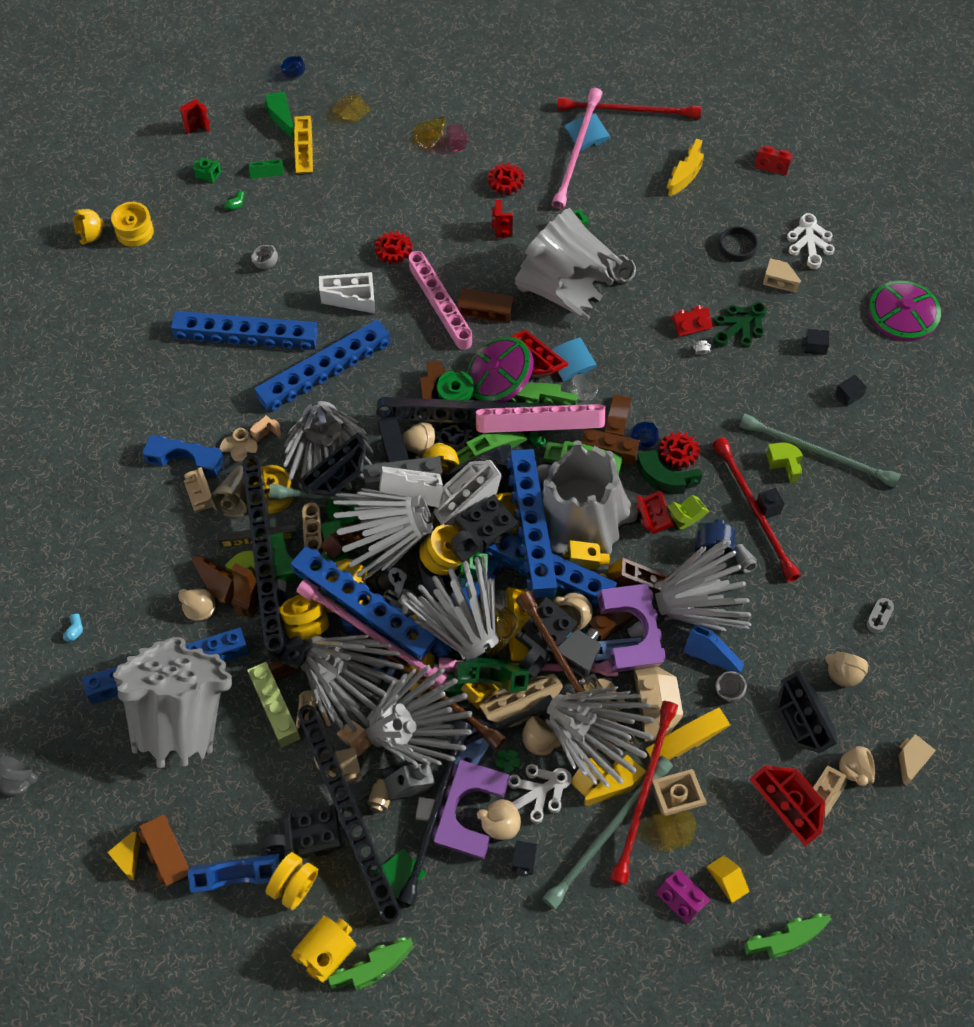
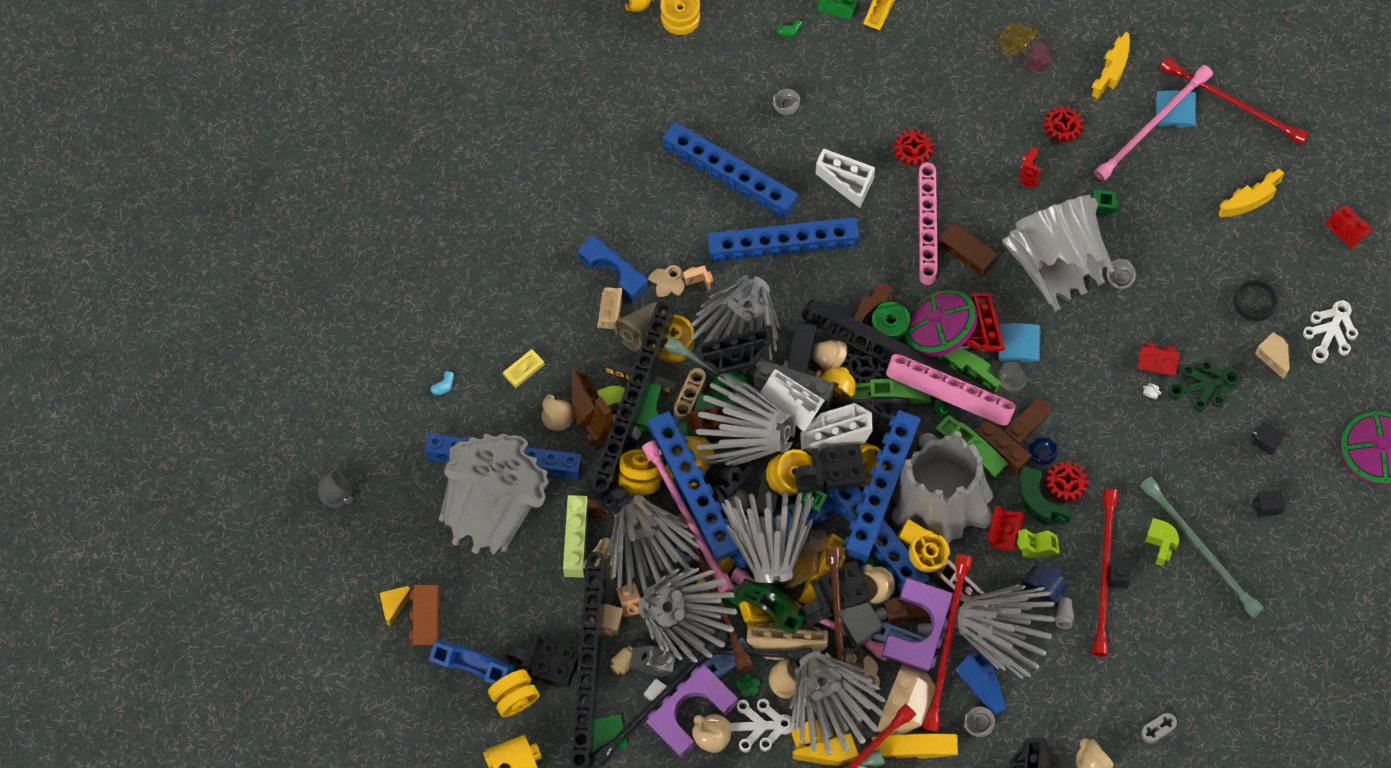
camera: 30 degrees right, 5 degrees up
(144, 578) = (523, 368): none -> light yellow plate
(520, 120) = (1114, 66): none -> yellow slope
(605, 559) = (928, 551): none -> yellow cylinder
(689, 706) = (932, 720): none -> red hose

